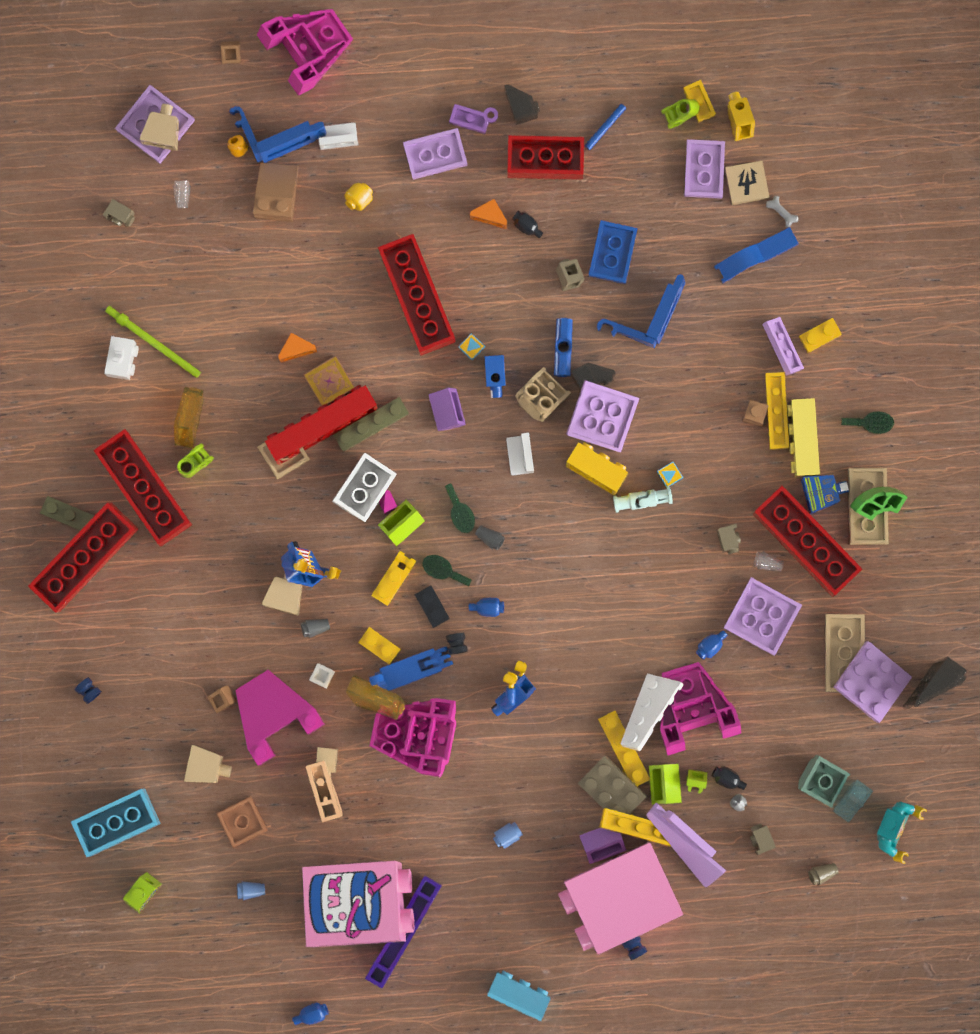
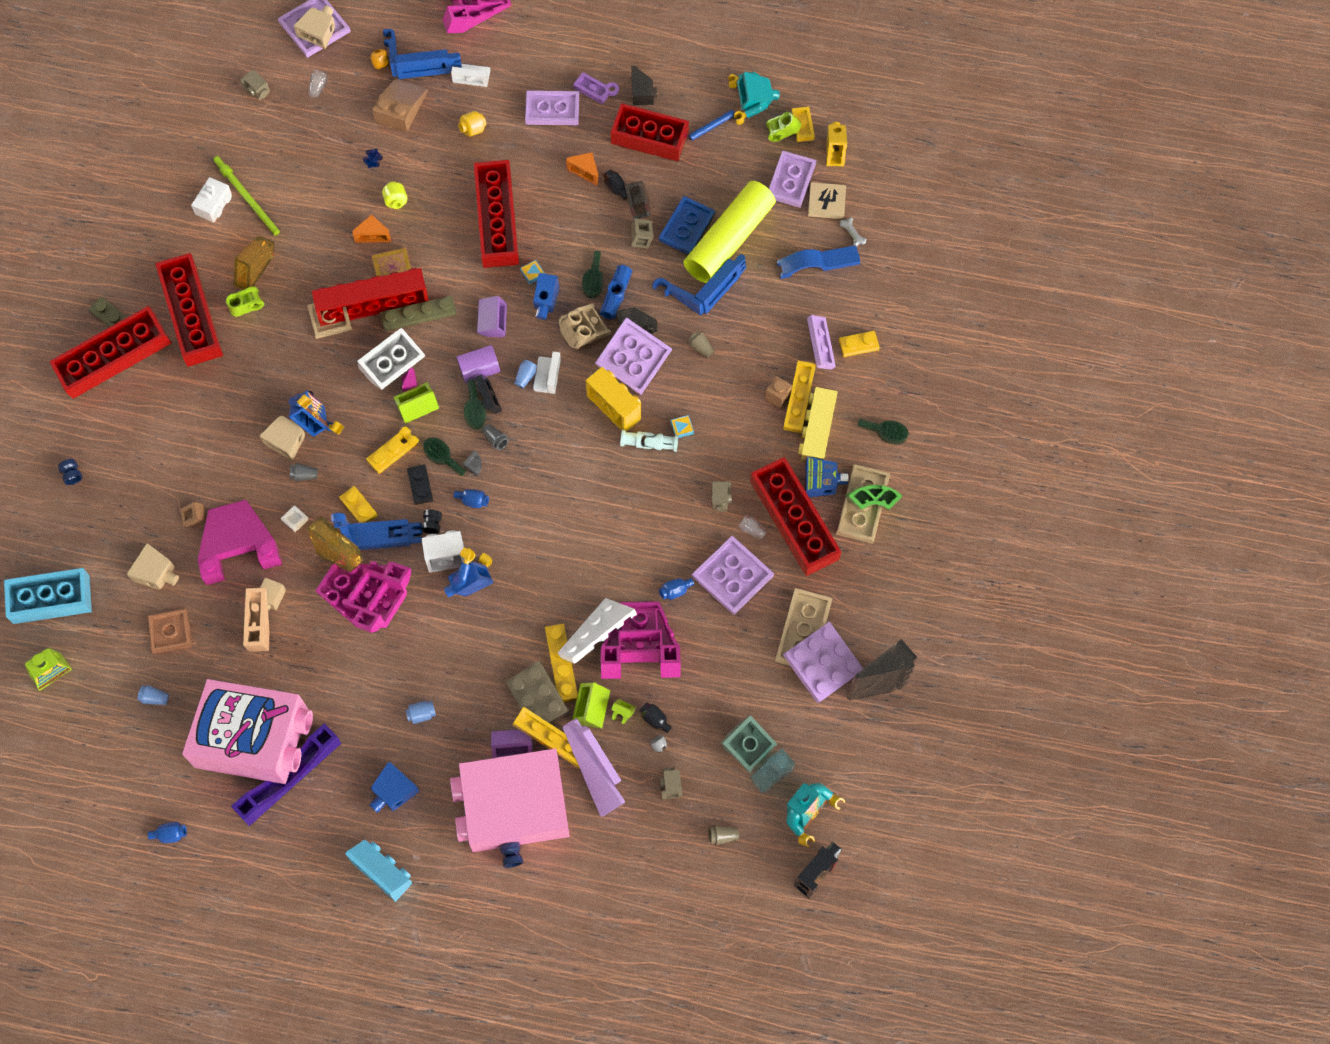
camera: 10 degrees right, 15 degrees down
(269, 265) = (372, 158): none -> clear blue wheel
(305, 301) = (394, 195): none -> neon yellow head
(450, 464) = (478, 362): none -> medium lavender brick
(466, 490) = (486, 390): none -> black plate
(477, 570) = (473, 463): none -> flat silver tile
(481, 672) = (443, 551): none -> white brick
(499, 460) = (525, 373): none -> medium blue cone
(504, 917) = (392, 789): none -> blue torso
(535, 337) = (593, 279): none -> clear green piece
(557, 240) = (638, 199): none -> clear smoke slope
(640, 81) = (754, 94): none -> teal torso
(659, 250) = (729, 231): none -> neon yellow piece
(664, 381) = (701, 344): none -> dark tan cone
(919, 883) = (817, 869): none -> black hips

